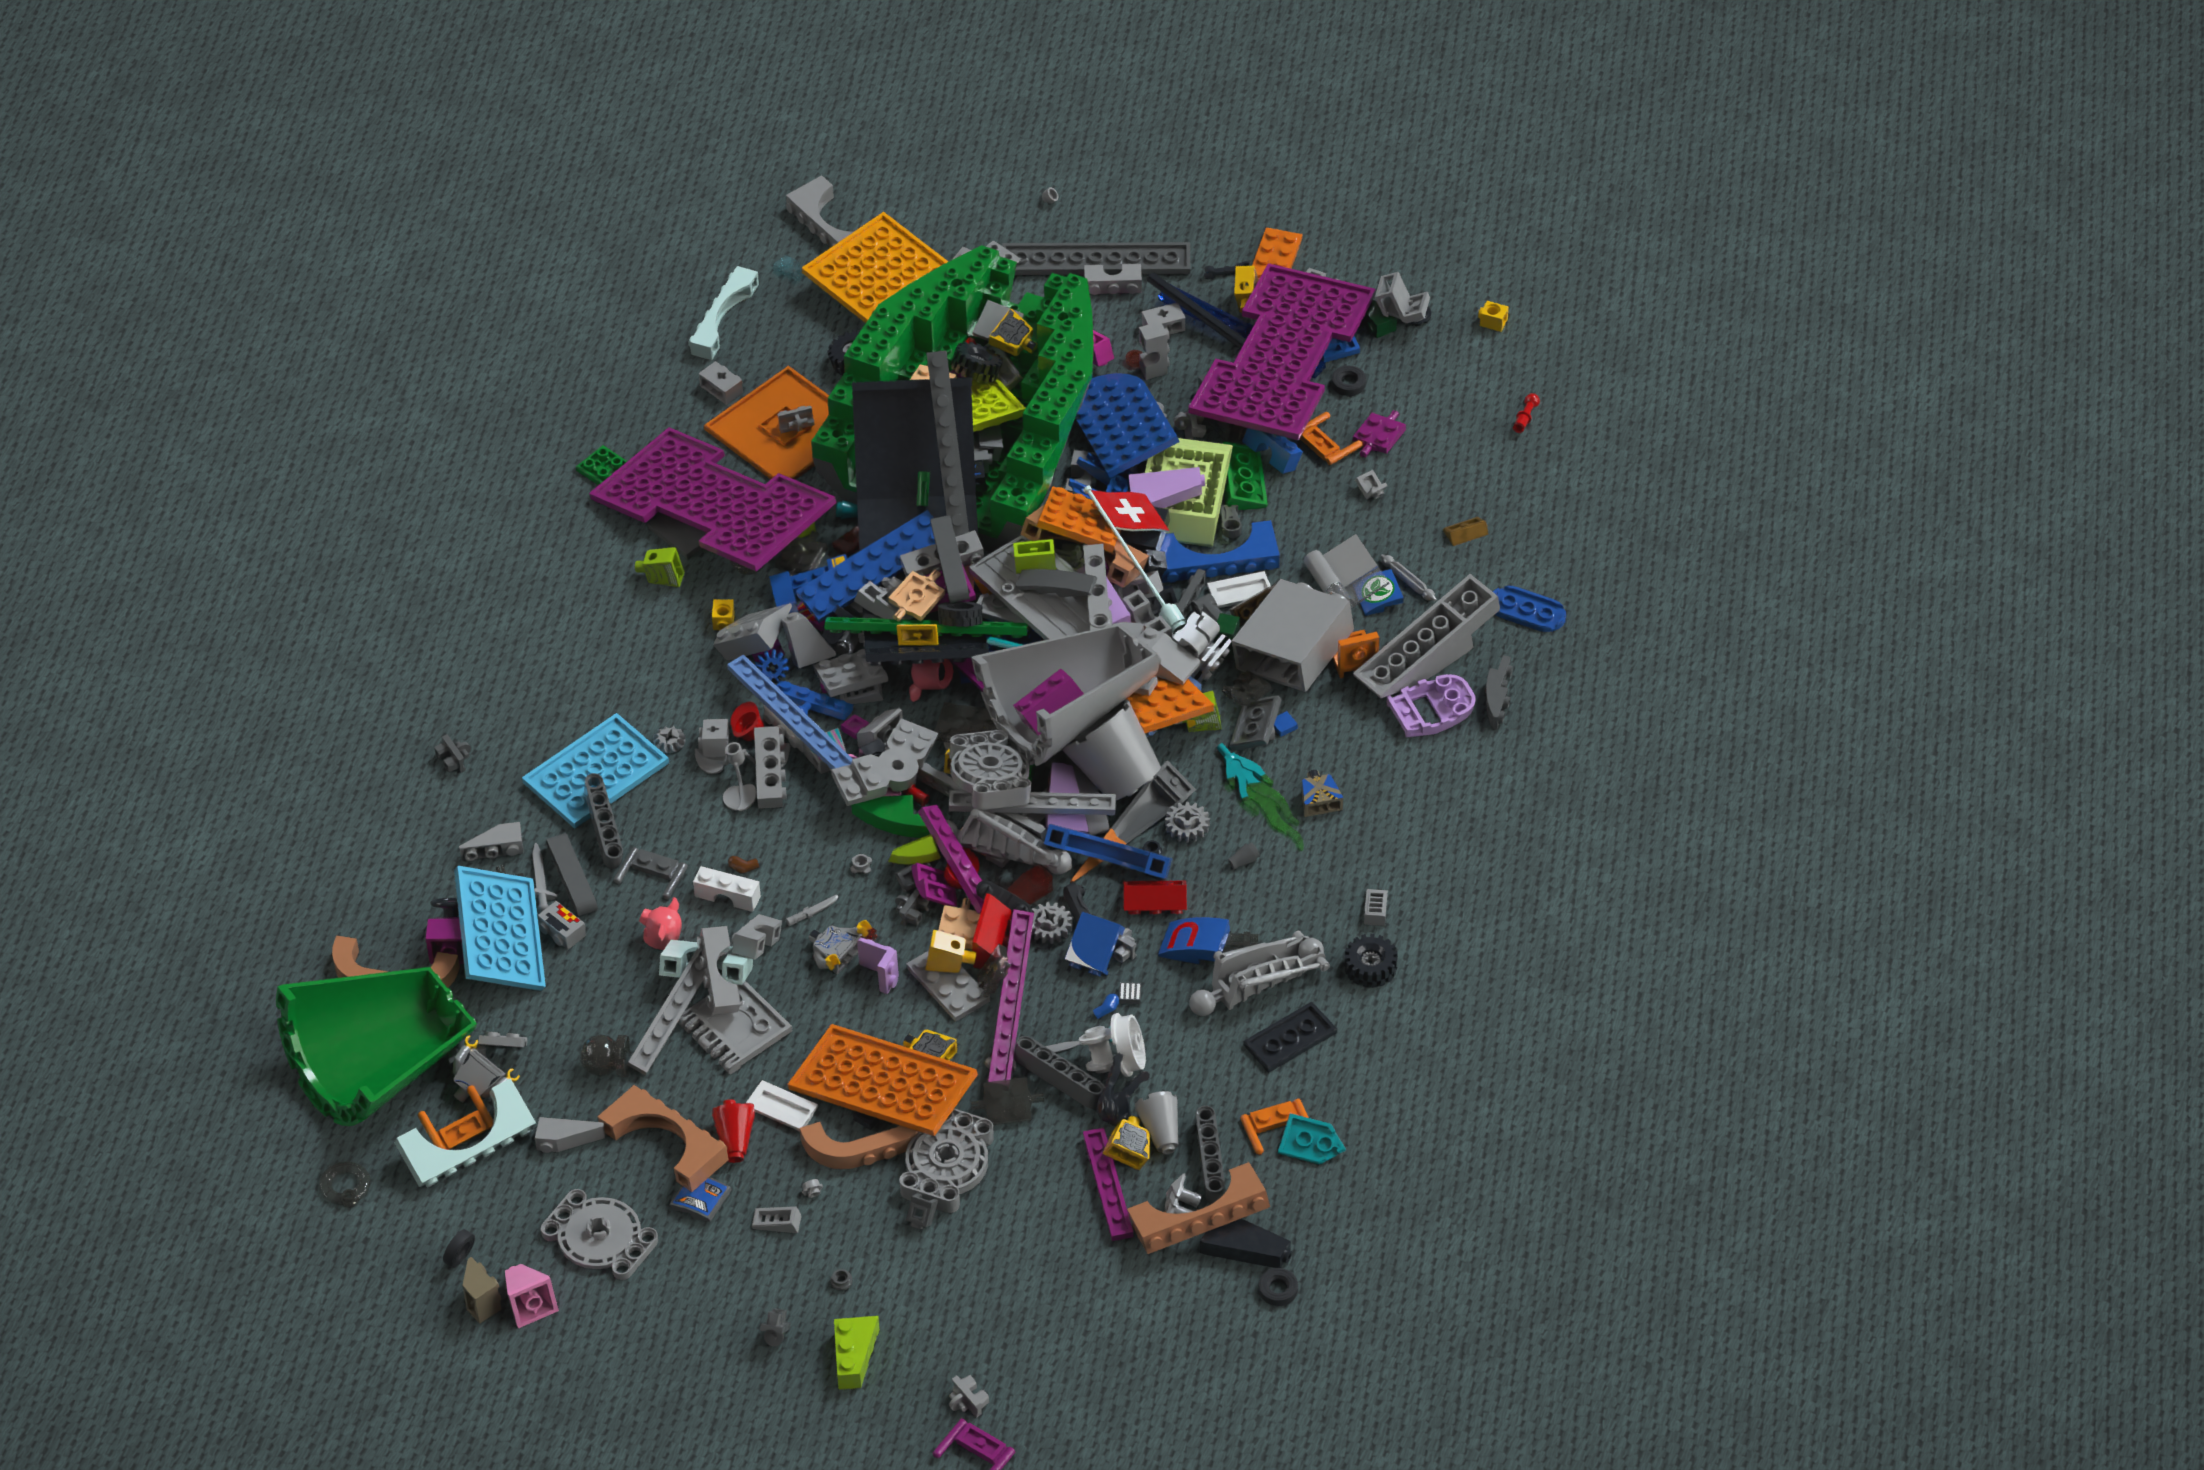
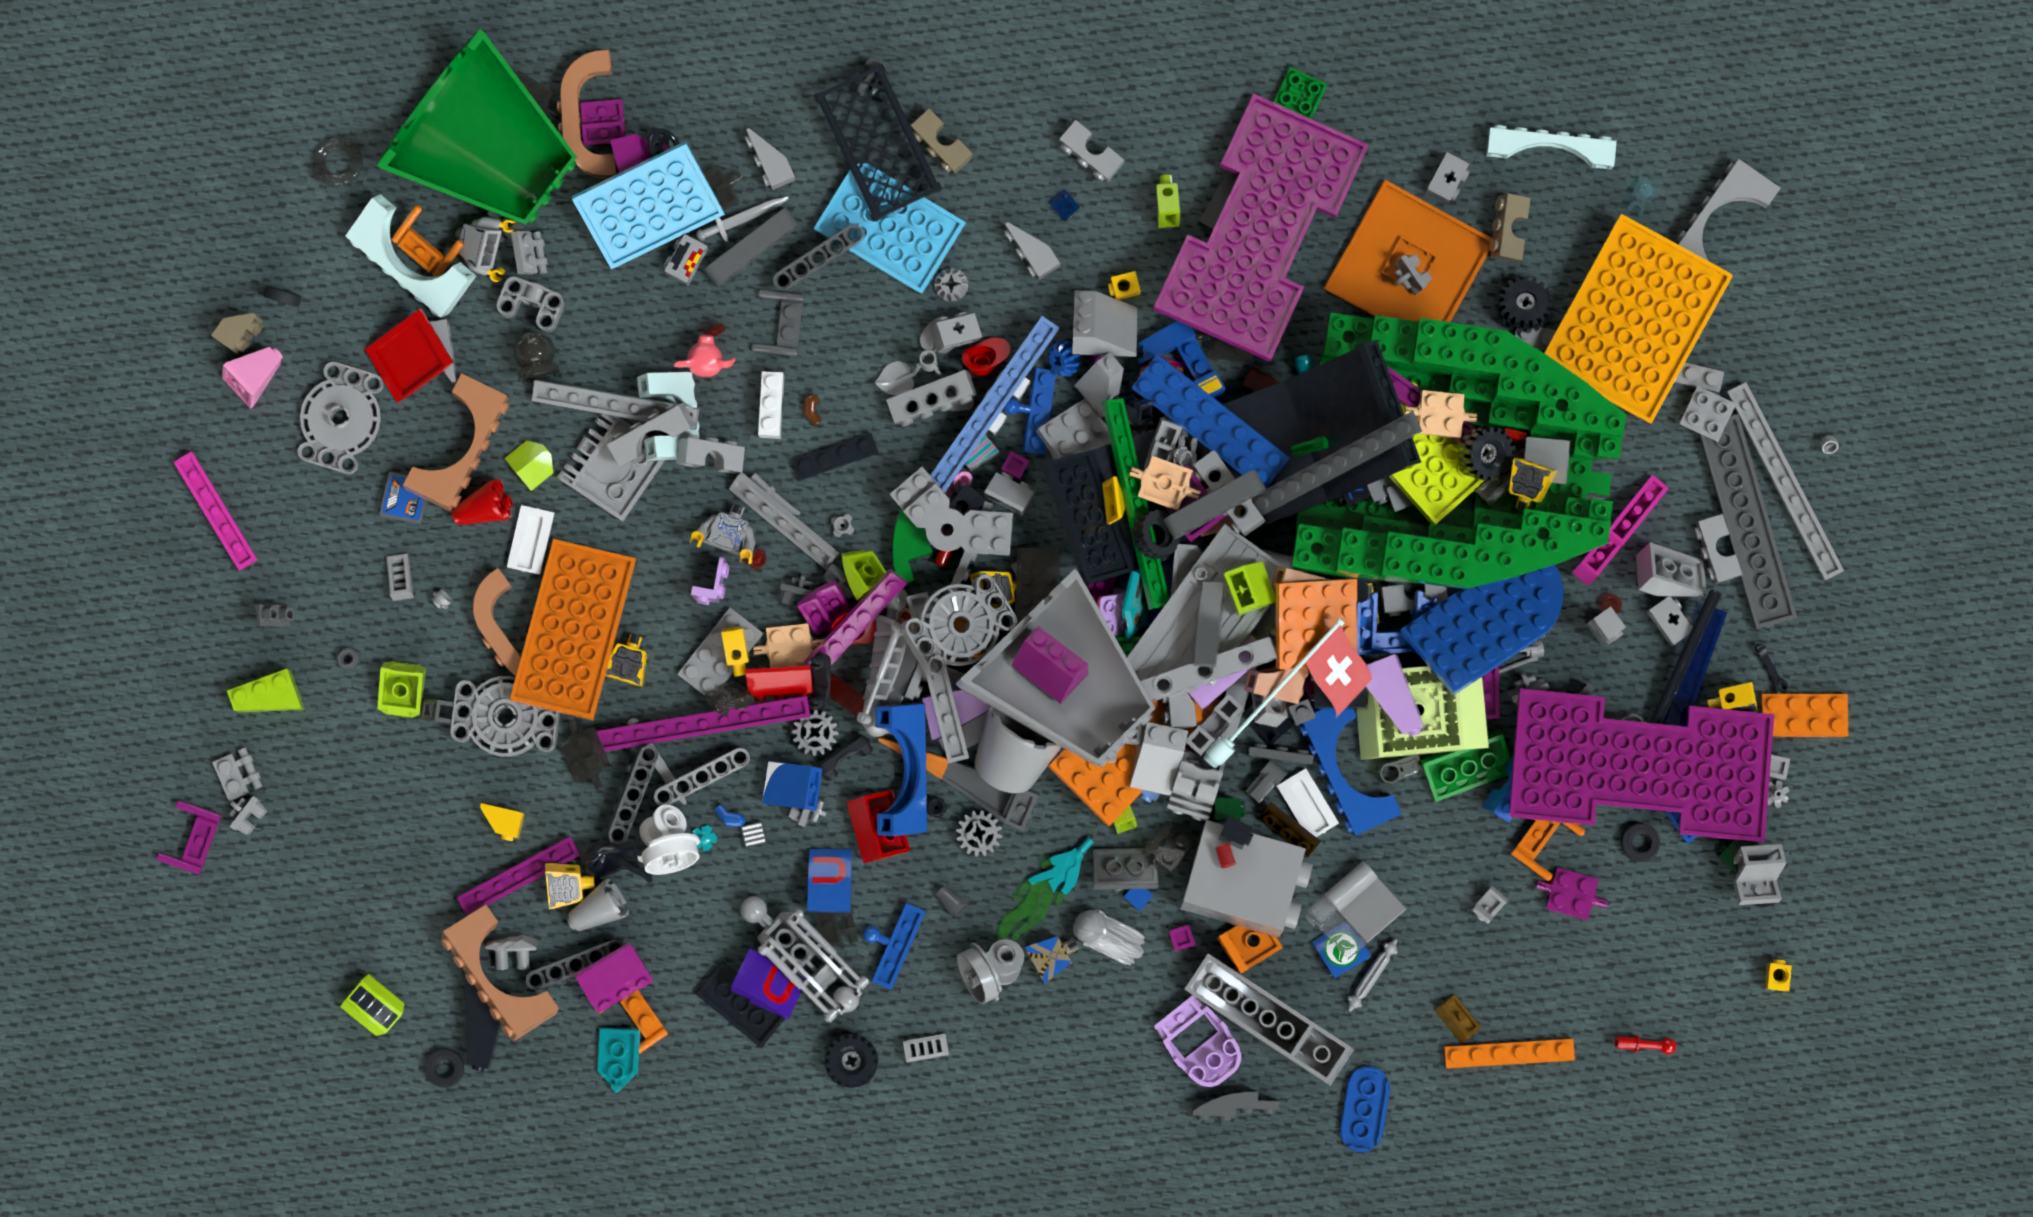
camera: 75 degrees right, 35 degrees up
(401, 958) = (602, 121): none -> magenta slope
(508, 776) = (846, 150): none -> black door
(521, 723) = (952, 156): none -> dark tan arch
(539, 1057) = (533, 295): none -> light grey beam
(562, 1155) = (409, 356): none -> red piece
(578, 621) = (1104, 165): none -> light grey arch
(629, 645) = (1064, 204): none -> clear blue slope
(637, 913) = (716, 330): none -> clear red tile
(650, 1357) = (215, 511): none -> dark pink plate
(665, 670) = (1037, 254): none -> light grey slope
(706, 1090) = (531, 463): none -> lime slope
(794, 355) = (1504, 243): none -> dark tan arch
(794, 857) = (835, 457): none -> black plate
(839, 904) = (783, 521): none -> light grey plate
(890, 1236) = (401, 689): none -> lime slope
(924, 1405) = (231, 777): none -> light grey plate
(1048, 1183) = (504, 821): none -> yellow slope
(1060, 1015) = (709, 768): none -> light grey beam
(1075, 227) = (1785, 481): none -> light grey plate
(1121, 310) = (1670, 572): none -> light grey slope
(1197, 1332) = (373, 1005): none -> lime slope
(1234, 1119) = (614, 977): none -> magenta slope
(1250, 616) = (1236, 833): none -> black brick
(1268, 624) = (1220, 853): none -> red piece
(1271, 904) = (897, 945): none -> blue plate
(1276, 1006) = (766, 985): none -> dark purple slope
(1310, 749) = (1108, 936): none -> light grey hair
(1318, 831) = (987, 971): none -> light grey piece
(1332, 699) = (1182, 938): none -> magenta plate
(1506, 503) = (1509, 1053): none -> orange plate

